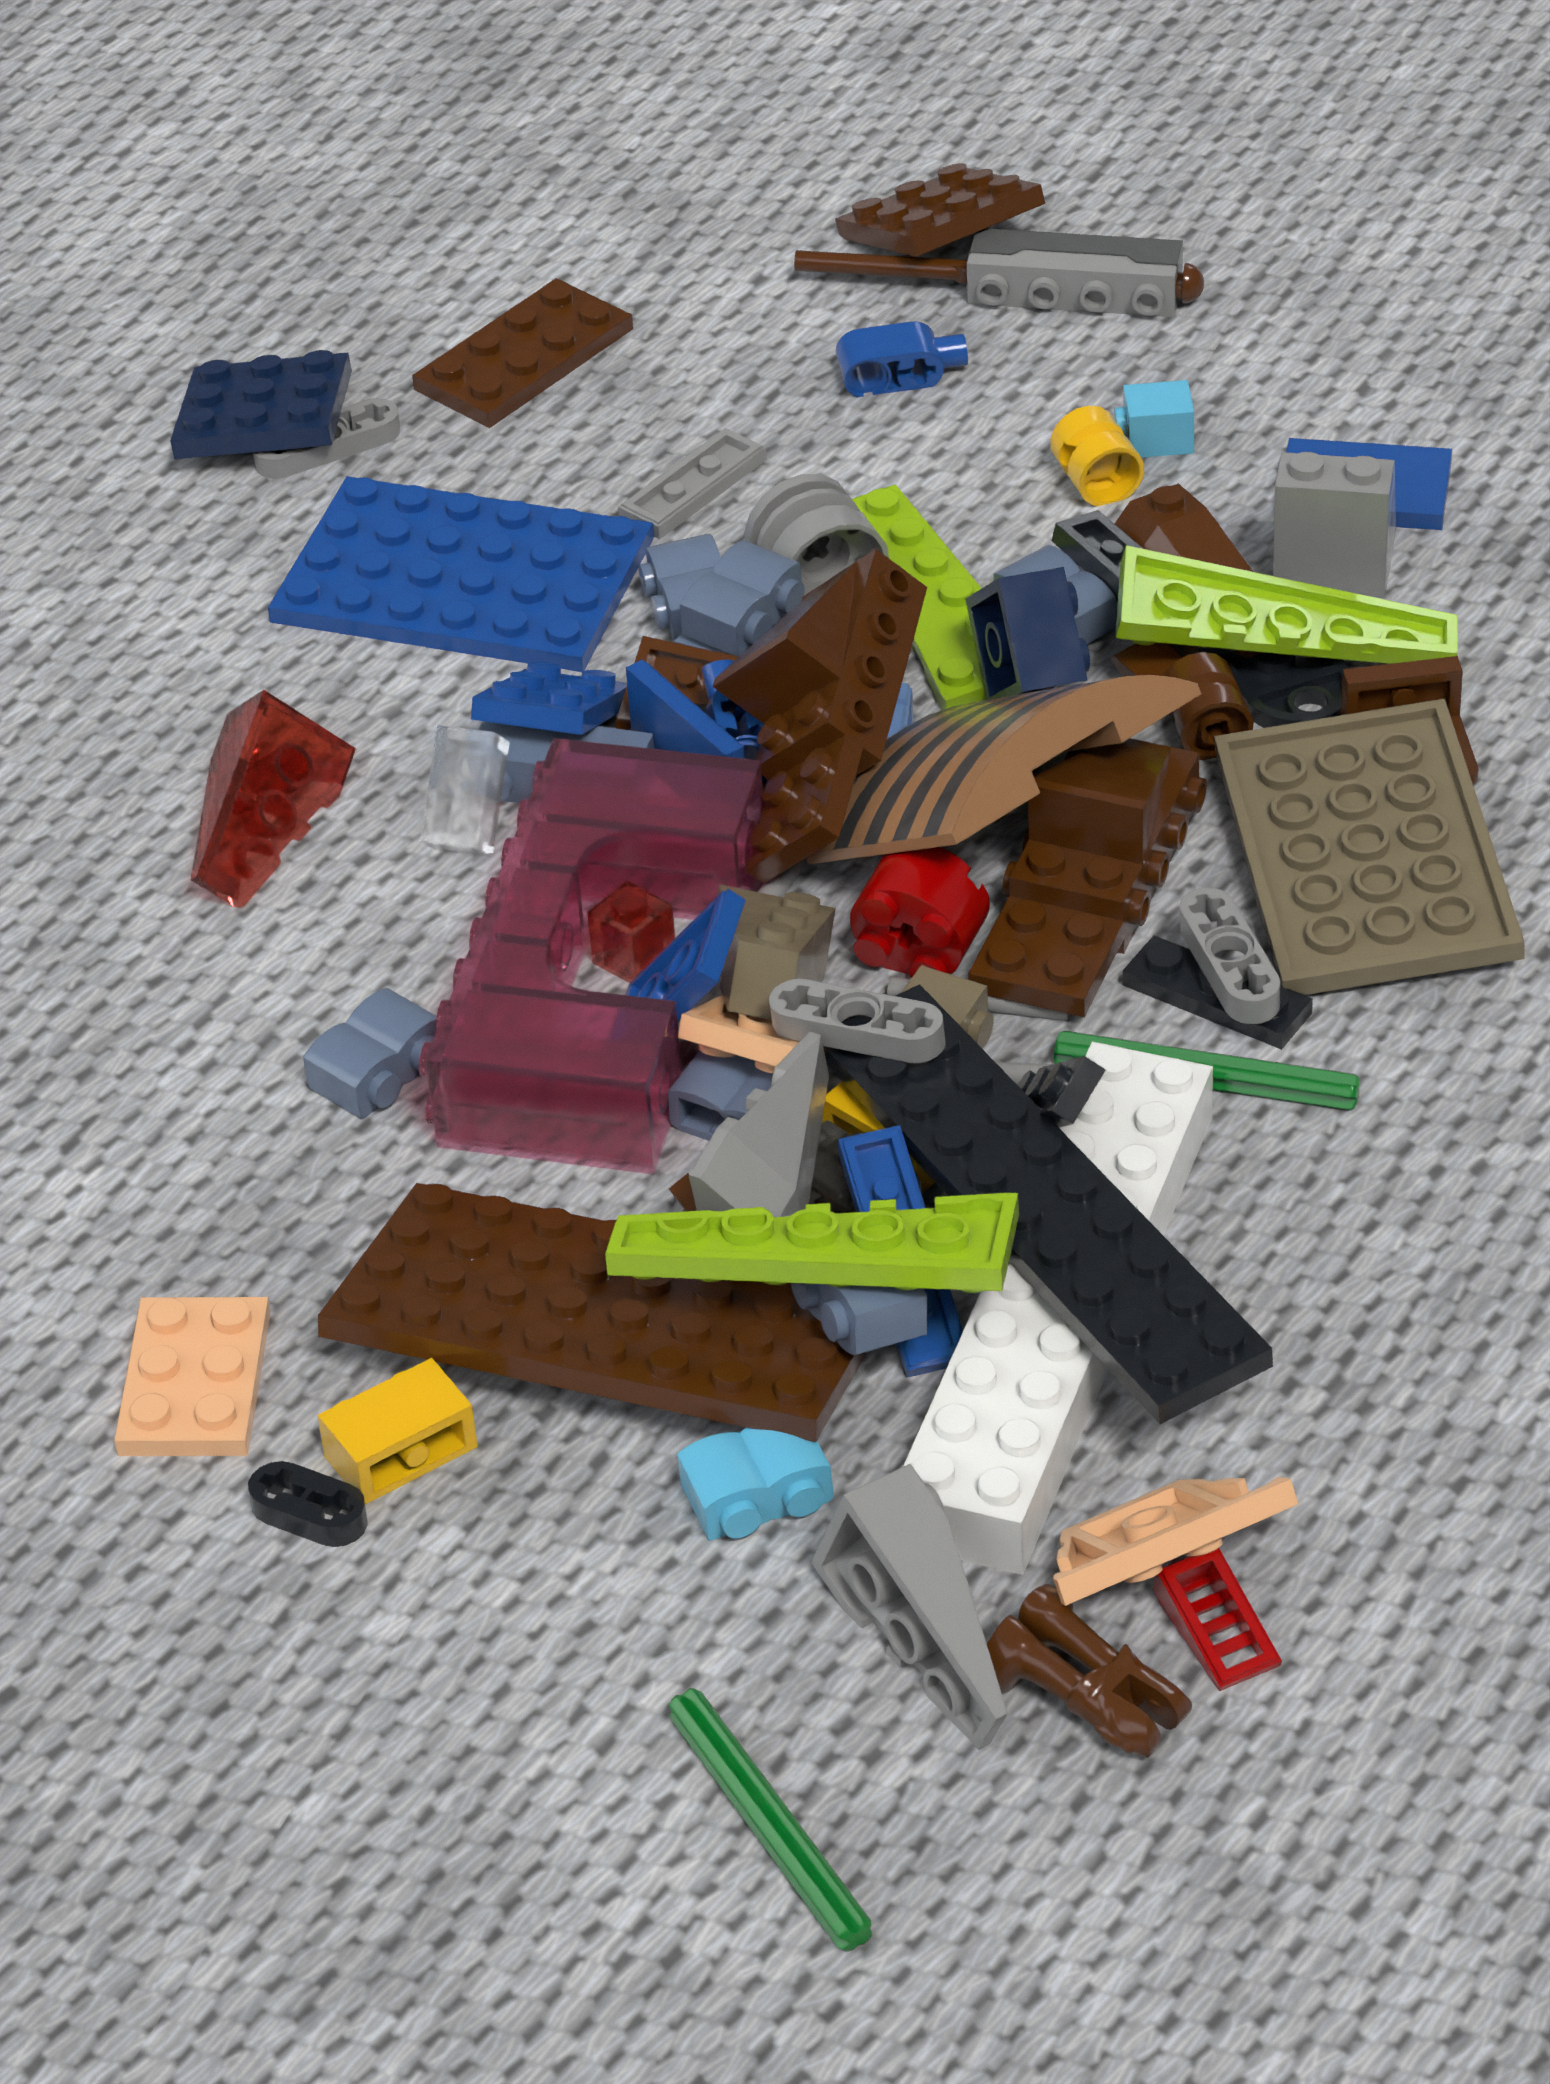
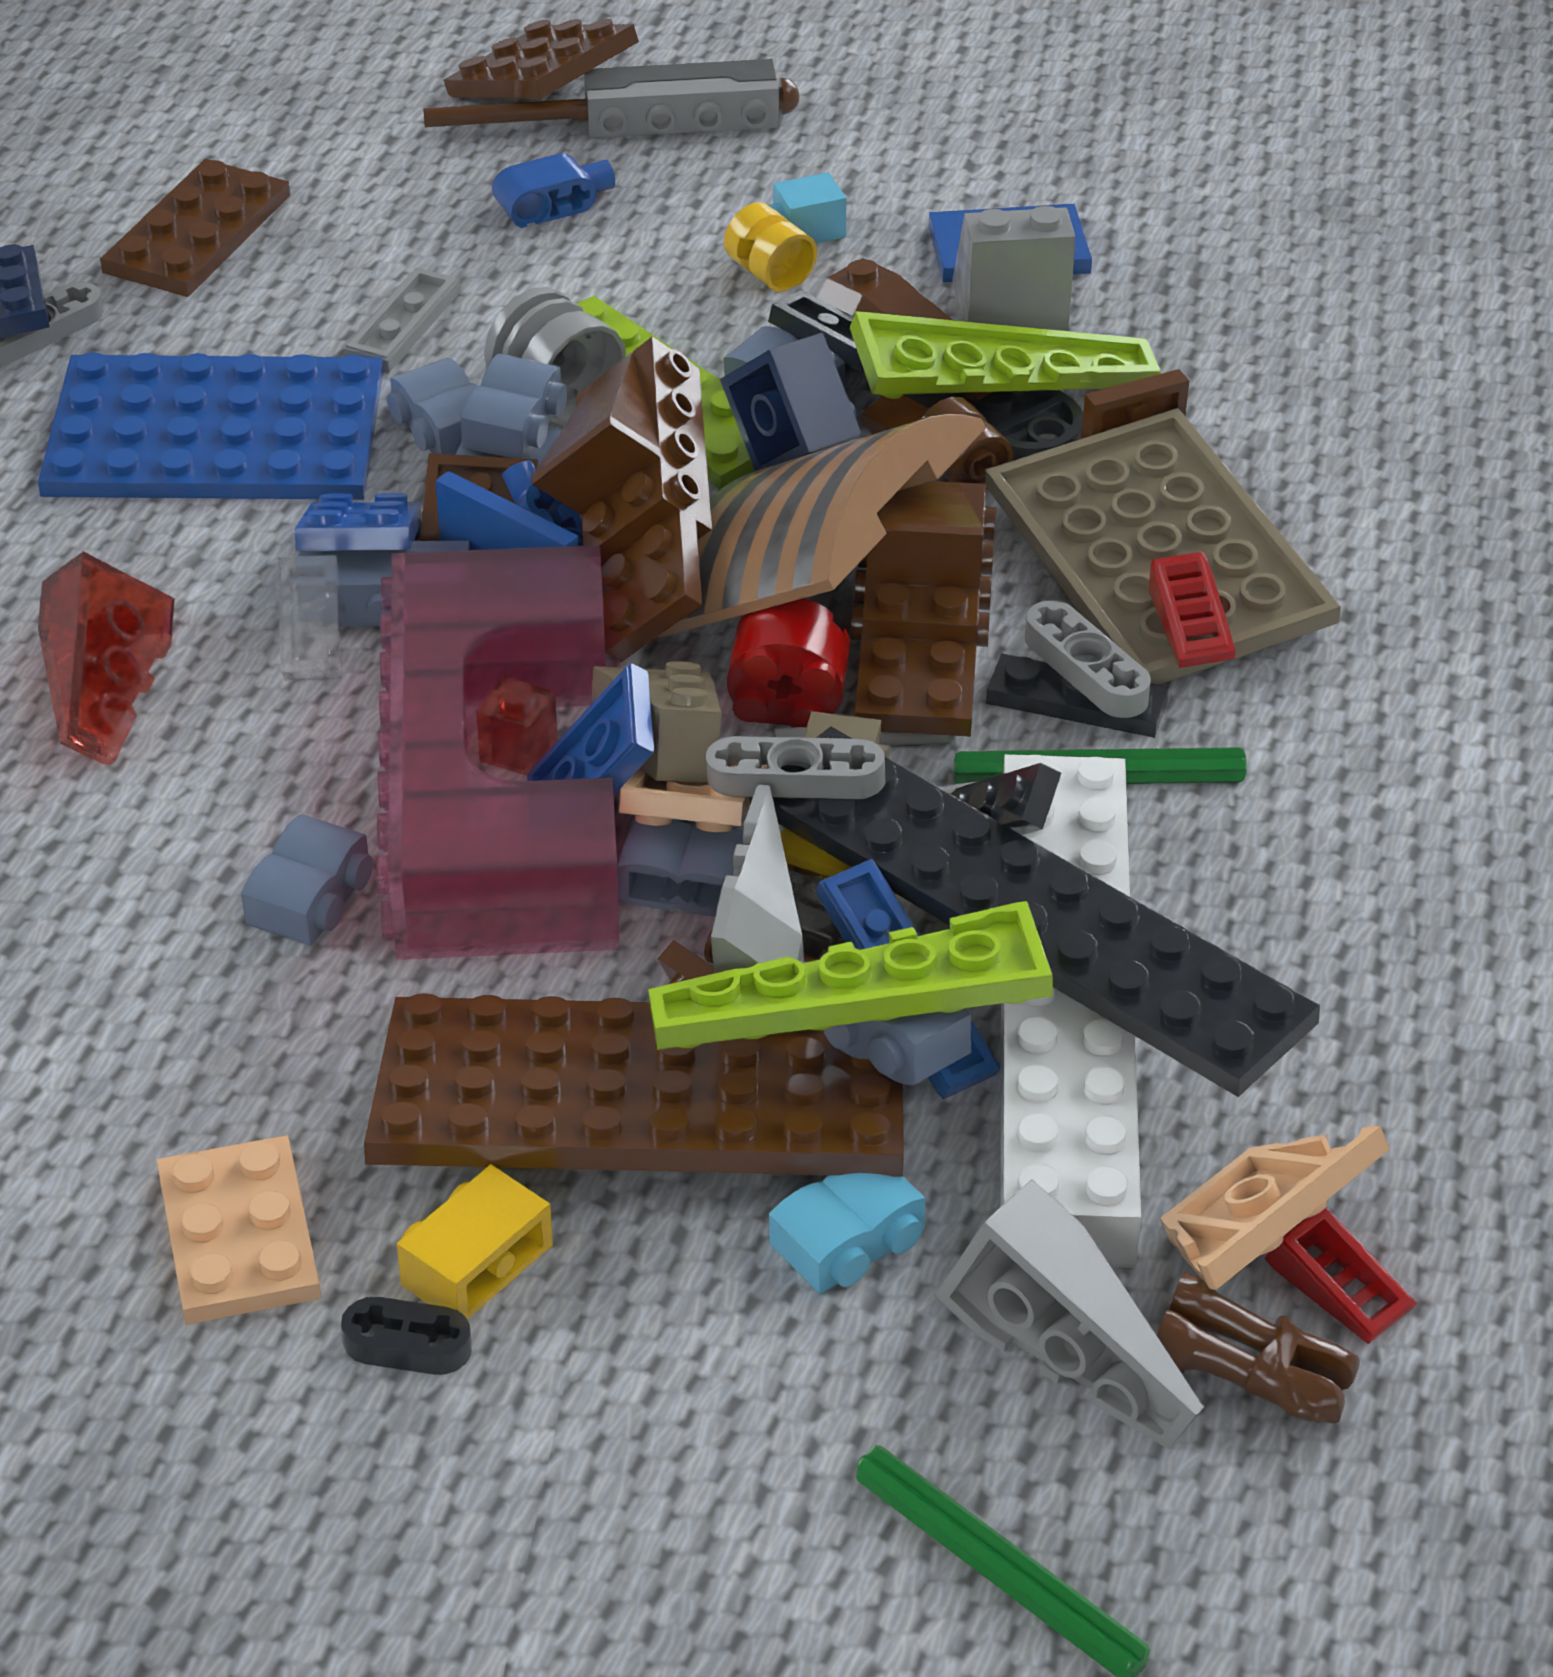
camera: 20 degrees left, 0 degrees up
(1357, 886) = (1187, 578): none -> red slope

